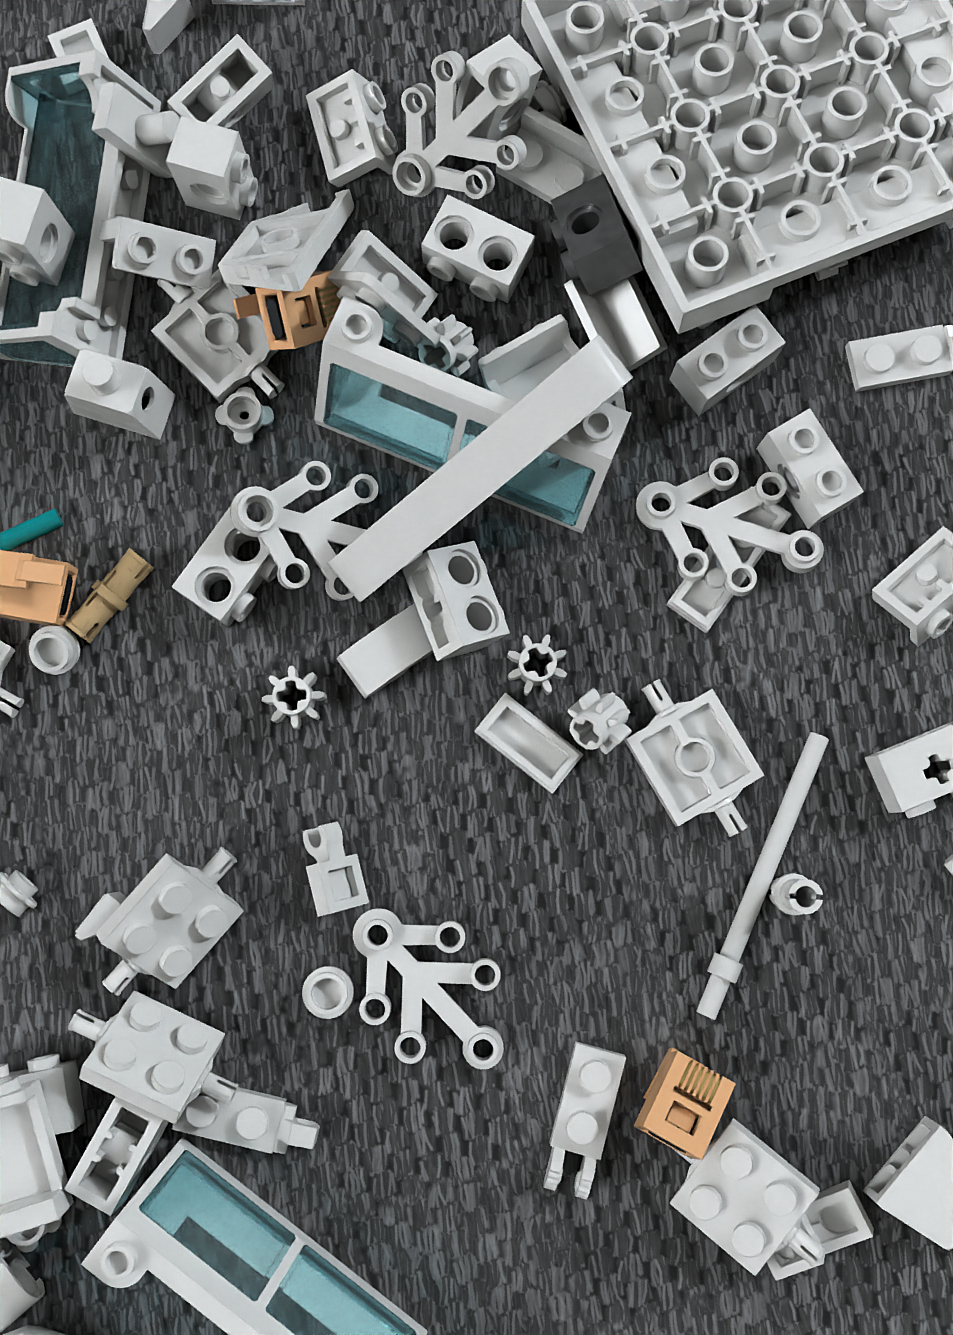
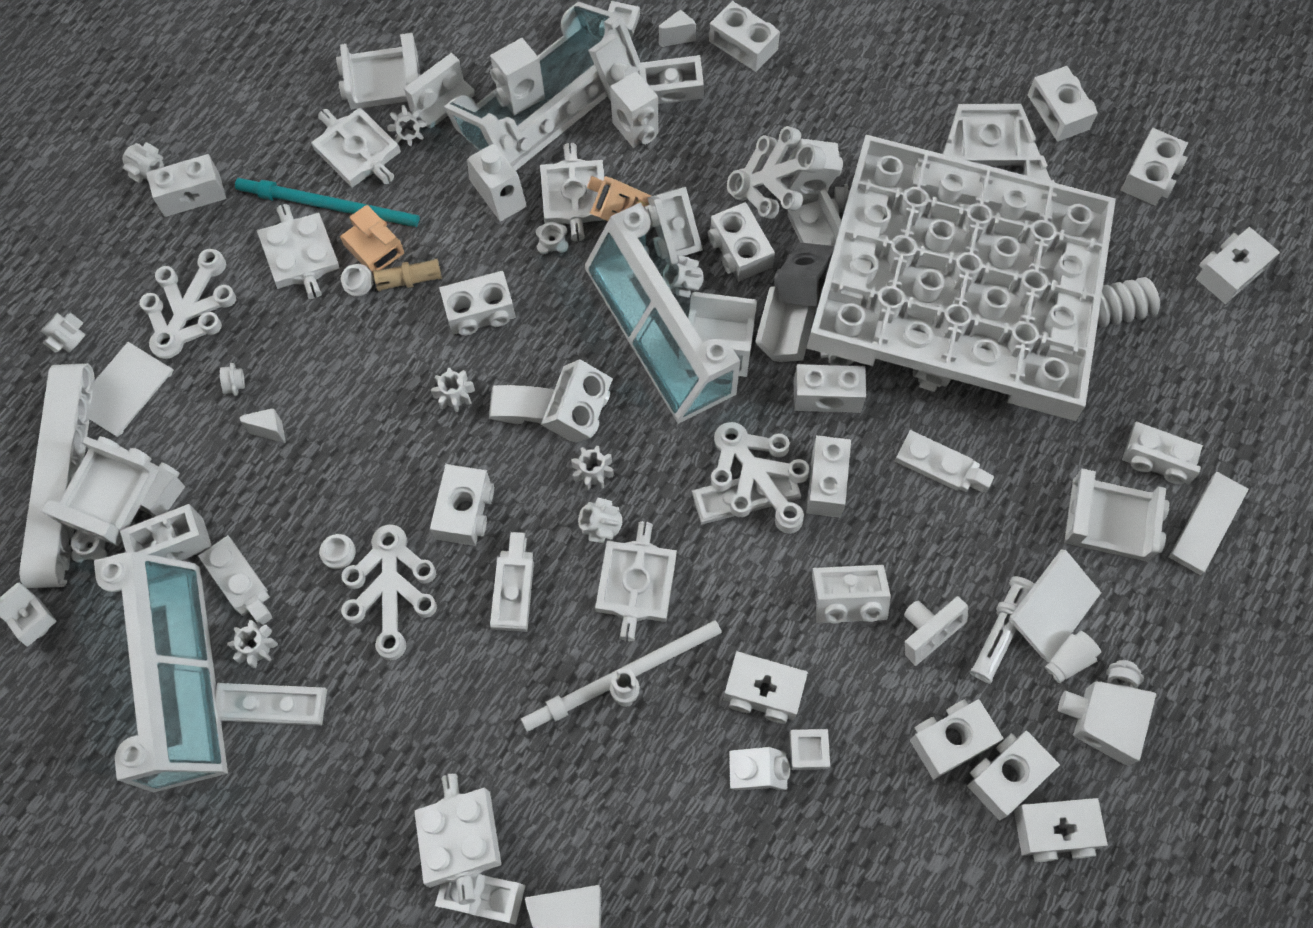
camera: 40 degrees right, 15 degrees down
(152, 1057) = (222, 507): white plate -> none
(159, 252) = (574, 129): white bracket -> none
(169, 921) = (291, 448): white plate -> none
(285, 247) = (642, 169): white wing -> none
(313, 526) = (536, 312): white plant -> none
(335, 878) = (392, 493): white plate -> none
(342, 1169) = (261, 649): none -> white gear
(351, 128) = (727, 141): white bracket -> none
(401, 809) = (457, 486): none -> white brick
(406, 1220) = (270, 704): none -> white tile
(481, 467) = (637, 331): white beam -> none
(528, 743) = (554, 507): white tile -> none
(564, 873) = (512, 586): none -> white hinge
(584, 1113) = (411, 725): white hinge -> none
(684, 1104) = (467, 757): light nougat piece -> none

